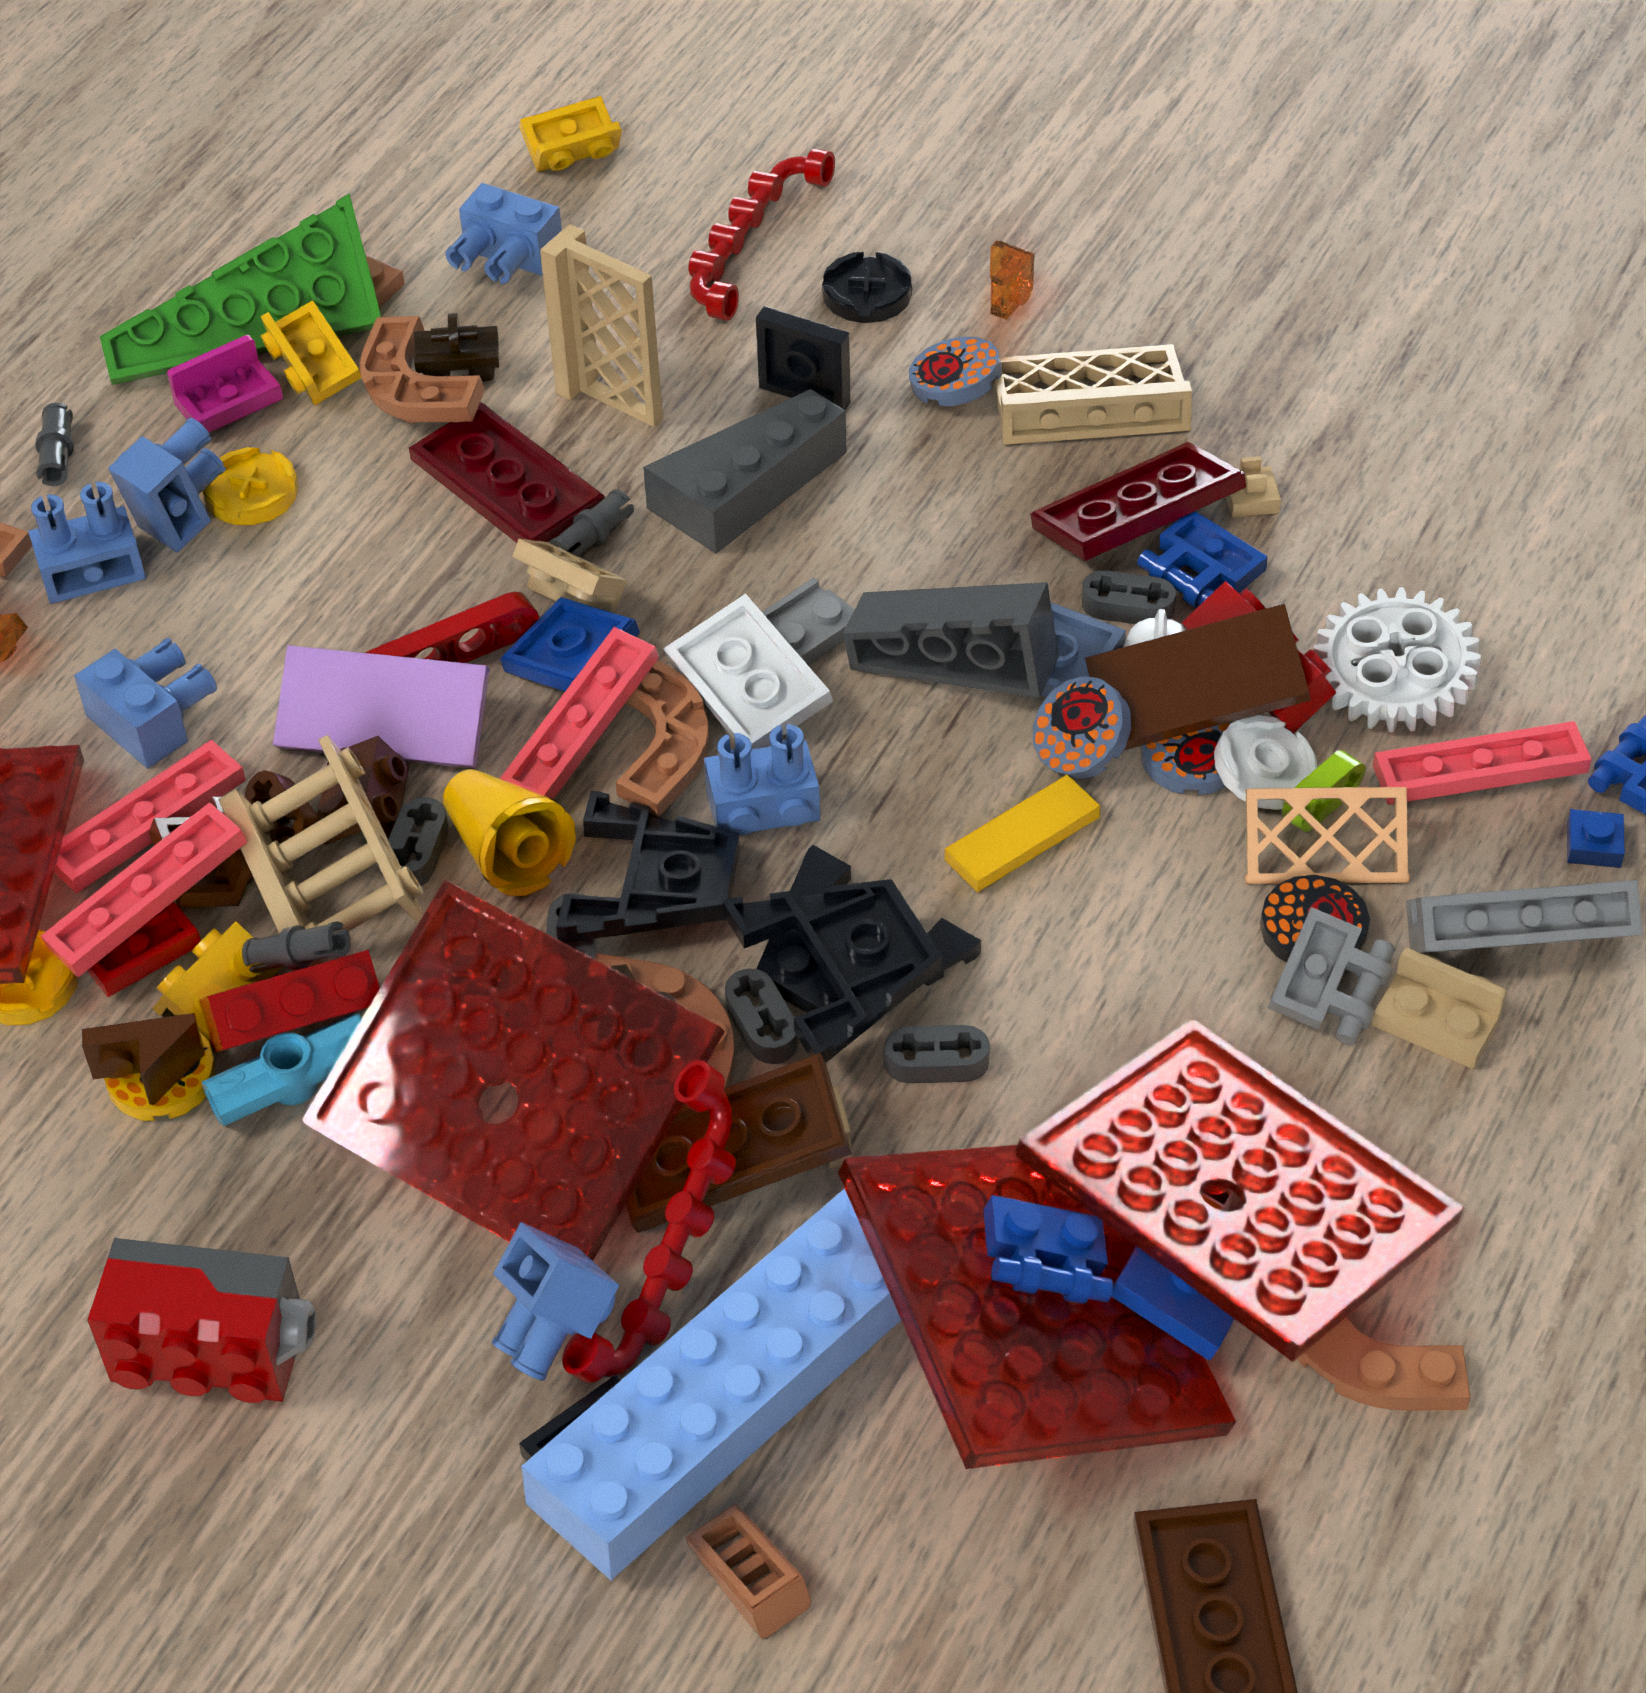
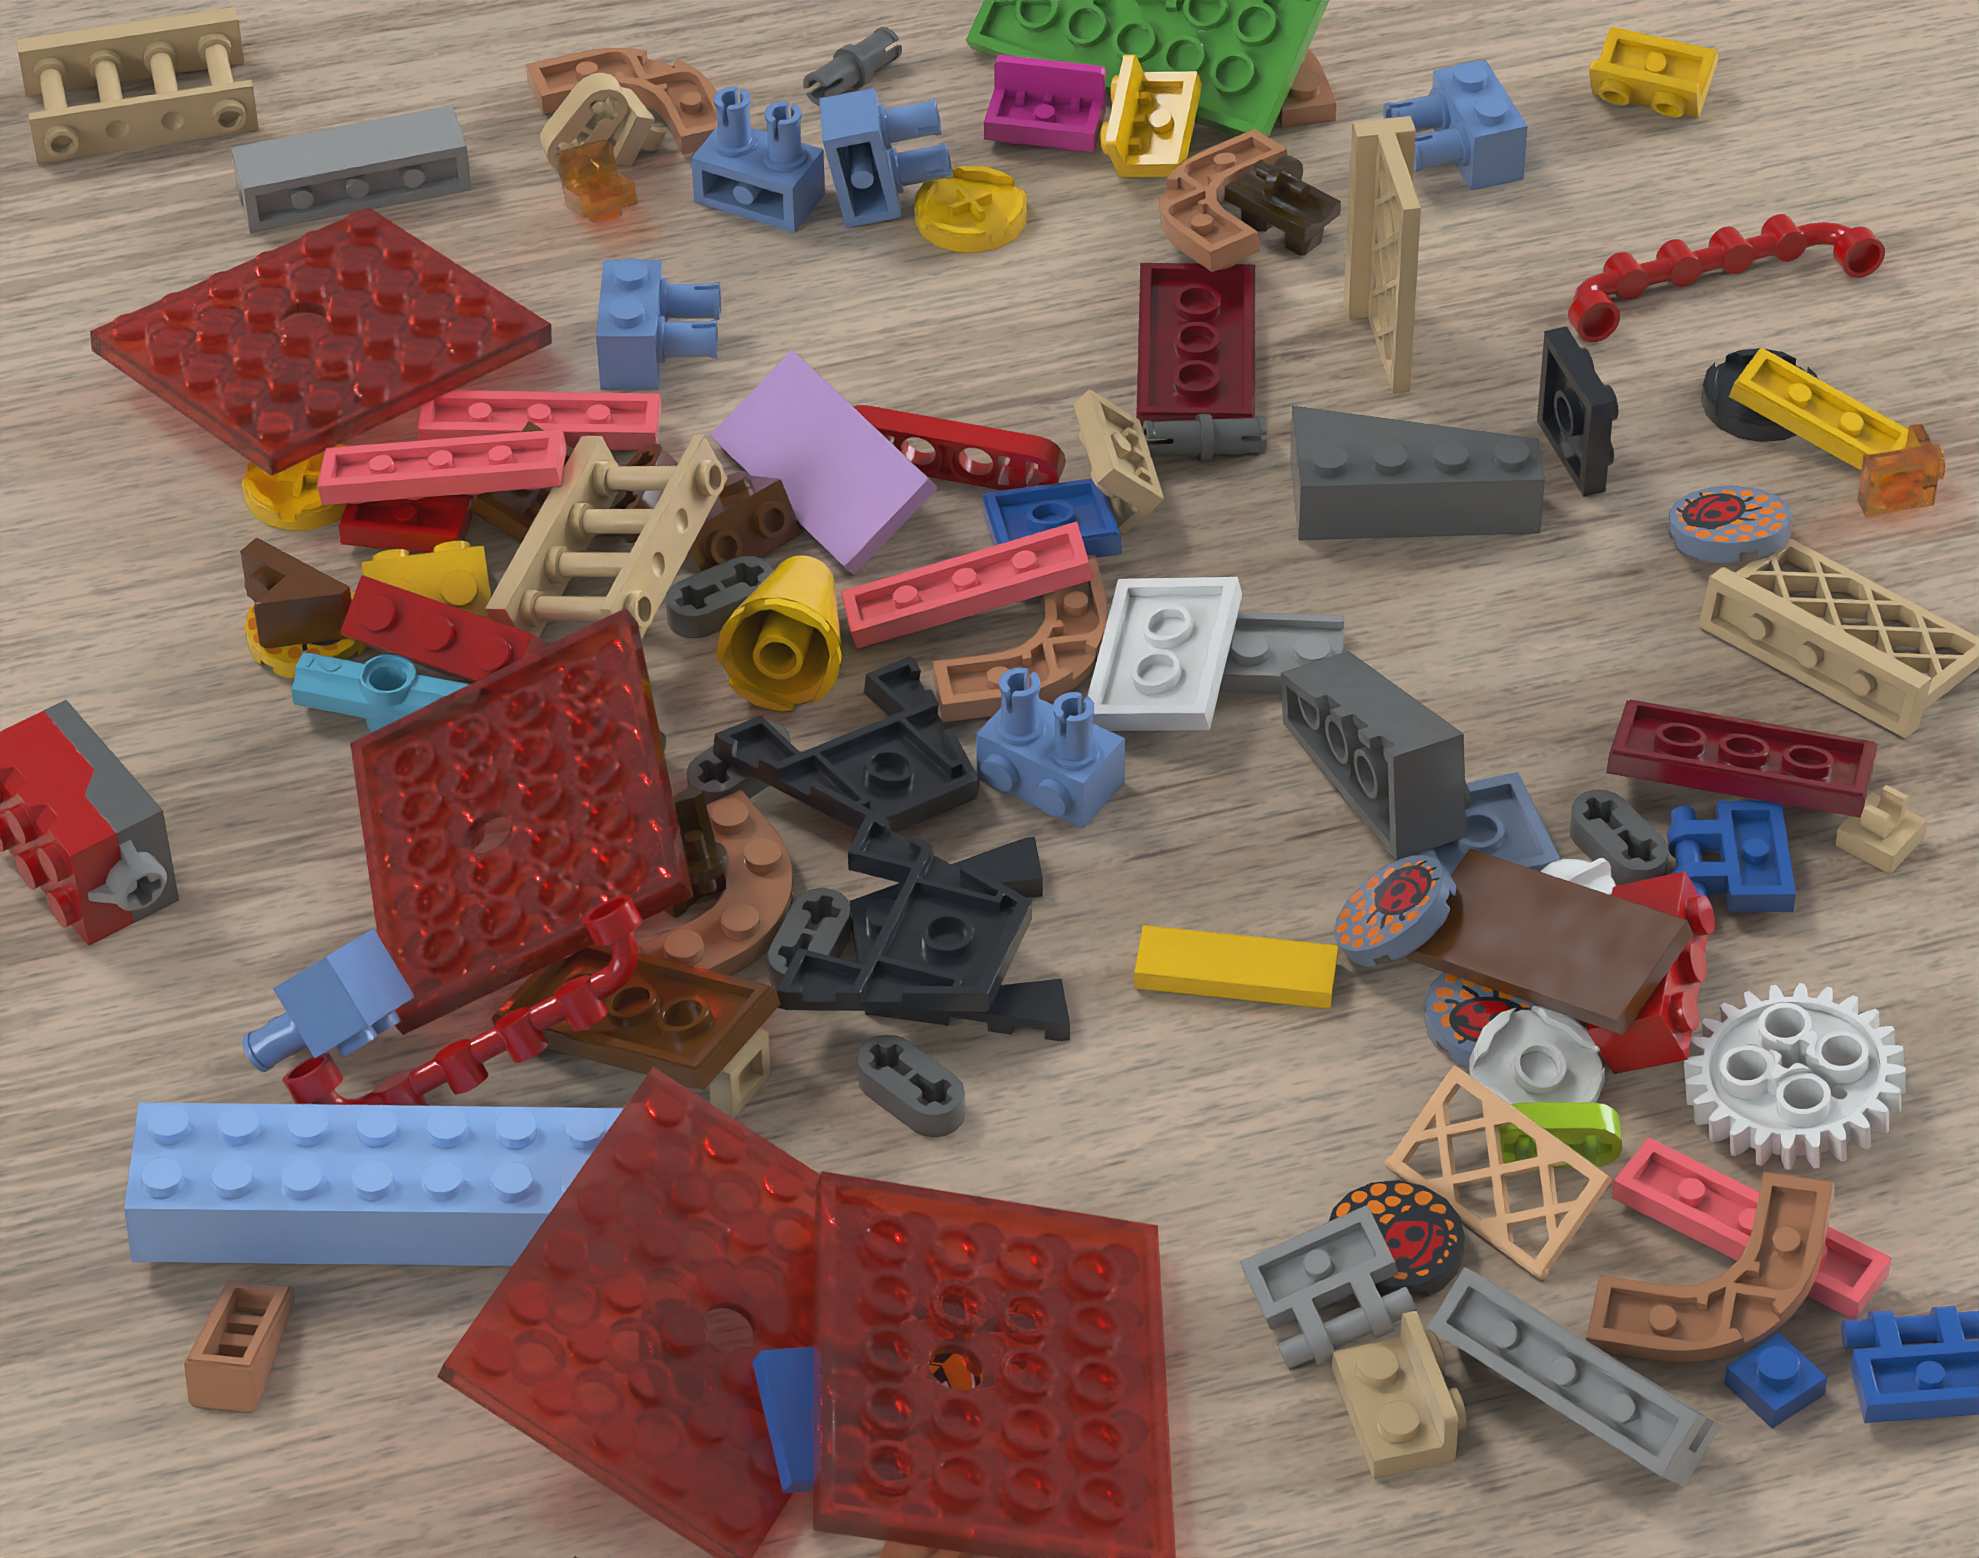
camera: 45 degrees right, 5 degrees down
(296, 947) = (487, 593): dark grey pin -> none
(923, 273) = (1815, 410): none -> yellow tile
(1047, 1249) = (745, 1266): blue plate -> none
(1545, 801) = (1735, 1307): none -> nougat plate

